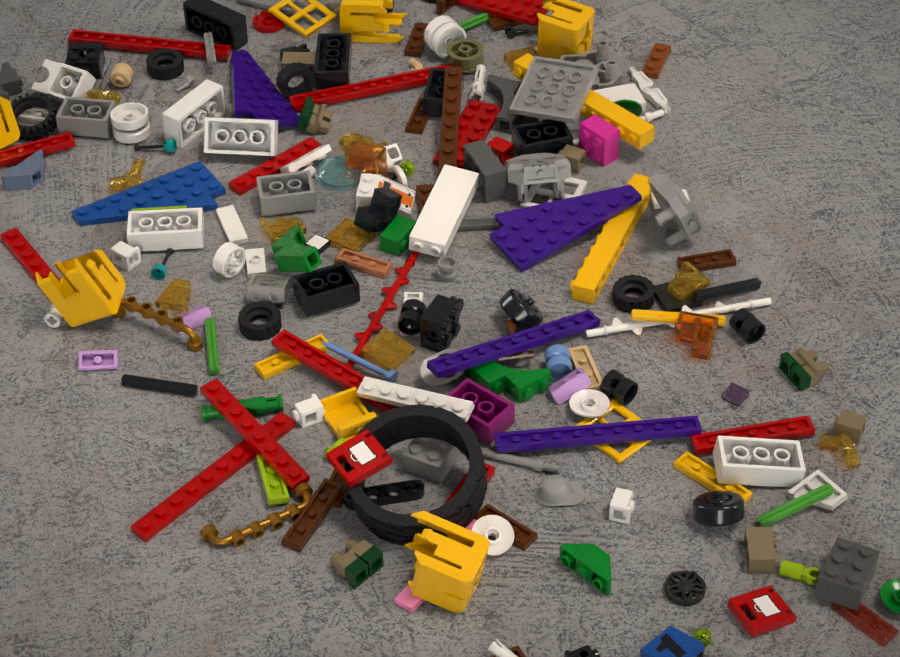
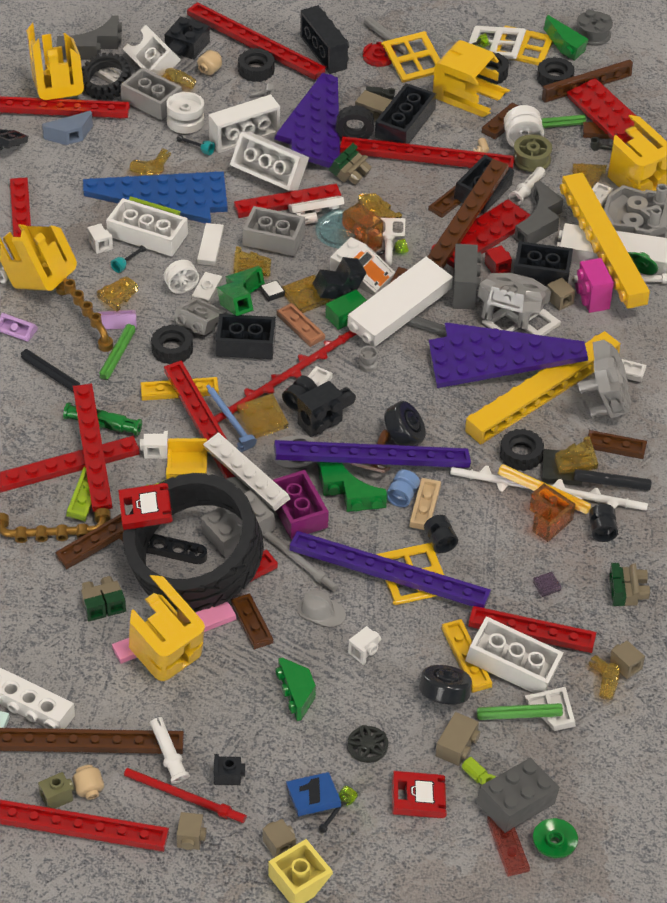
camera: 25 degrees right, 5 degrees up
(210, 50) = (302, 64): light grey axle -> none
(499, 528) = (230, 614): white dish -> none
(554, 89) = (578, 218): light grey plate -> none
(569, 384) = (398, 514): lavender slope -> none
(589, 403) = (403, 537): white dish -> none

